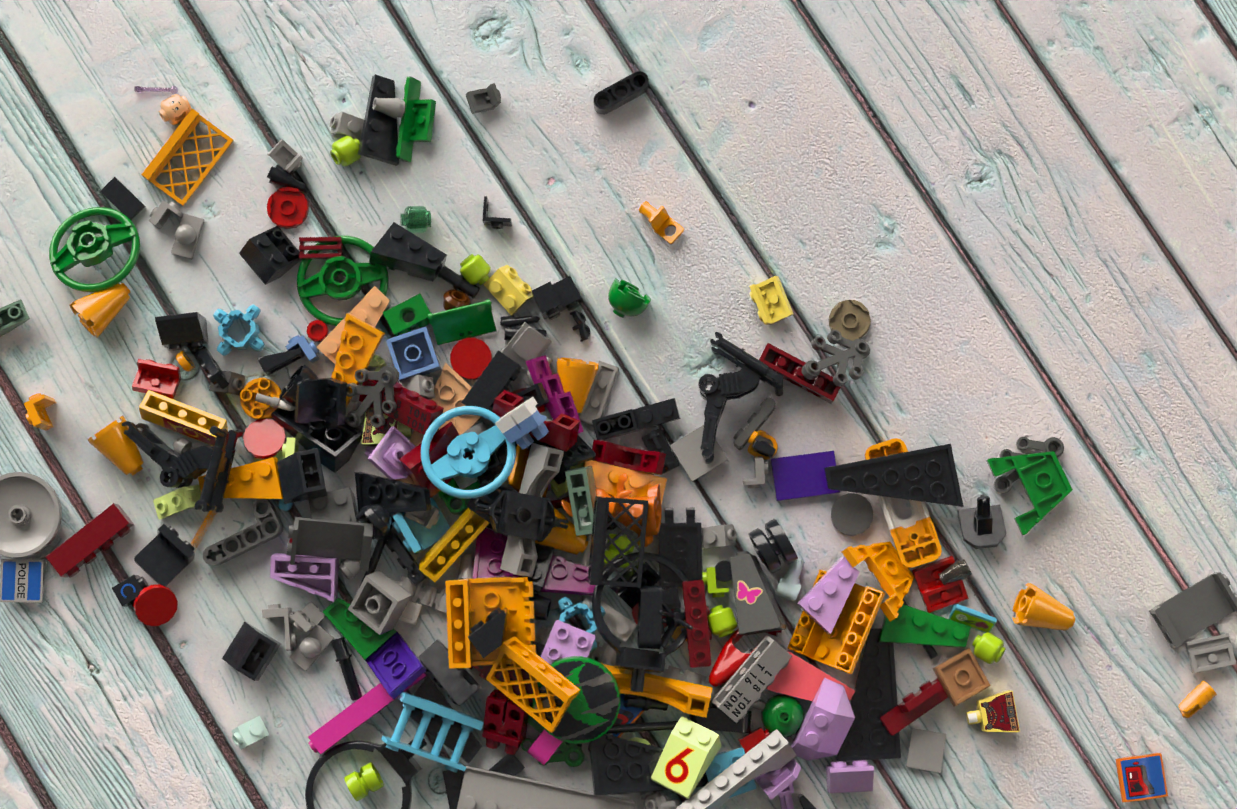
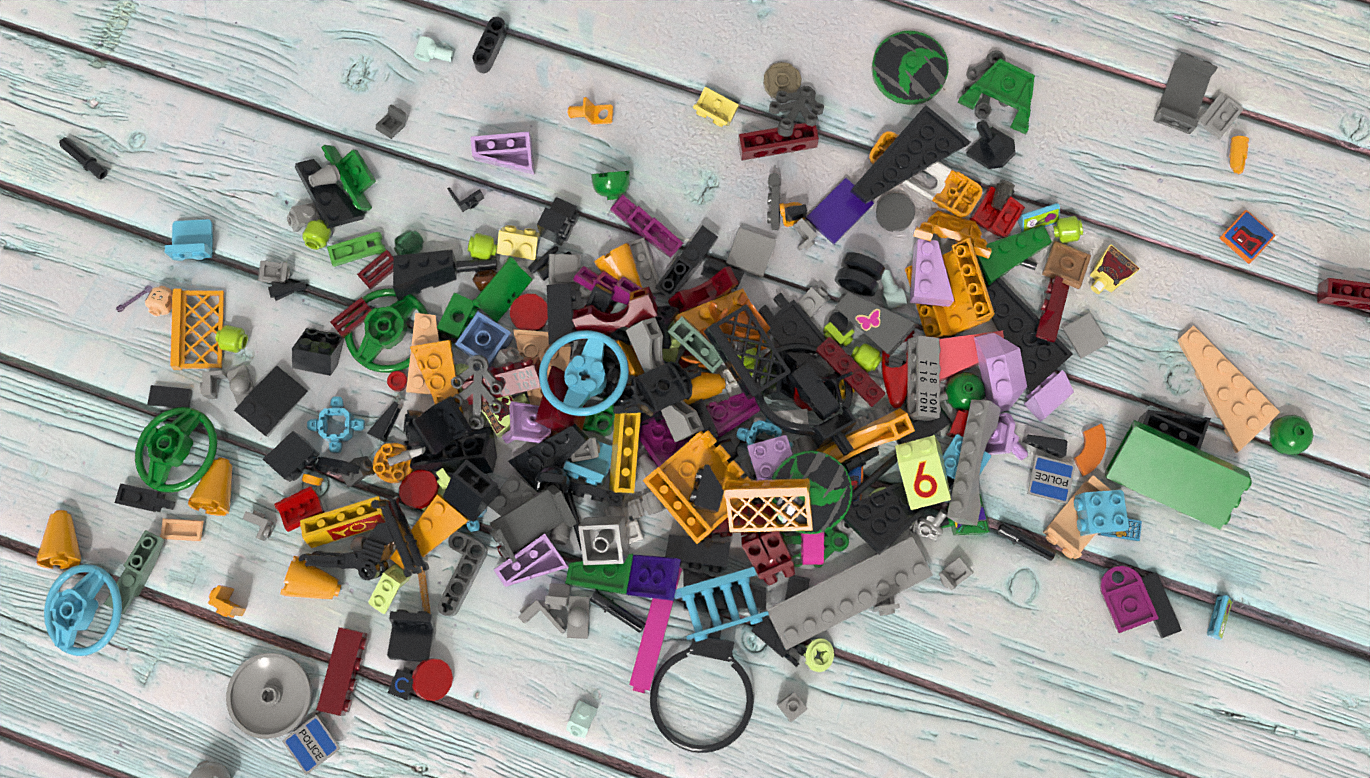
camera: 40 degrees left, 5 degrees down
(38, 269) = (142, 498): none -> black hinge
(50, 320) = (181, 529): none -> light nougat tile
(117, 361) = (258, 518): none -> light grey bracket
(201, 268) = (271, 401): none -> black slope
(208, 189) = (231, 339): none -> lime head
(239, 74) = (191, 240): none -> medium azure bracket
(251, 651) = (534, 656): black slope -> none
(287, 207) = (304, 309): red tile -> none
(308, 348) = (401, 397): medium blue bracket -> none
(366, 780) = (698, 685): lime wheel -> none
(369, 189) = (356, 249): none -> bright green plate
(374, 221) = (372, 265): none -> dark red tile
(522, 420) = (605, 319): hips -> none
(560, 201) = (505, 150): none -> lavender wedge
(564, 56) = (427, 49): none -> light aqua pin
(580, 319) = (592, 228): black piece -> none
(628, 360) = (646, 226): none -> magenta slope
(731, 386) = (737, 184): black piece -> none
(971, 395) = (910, 67): none -> dish
(1041, 610) = (1081, 174): light orange cone -> none

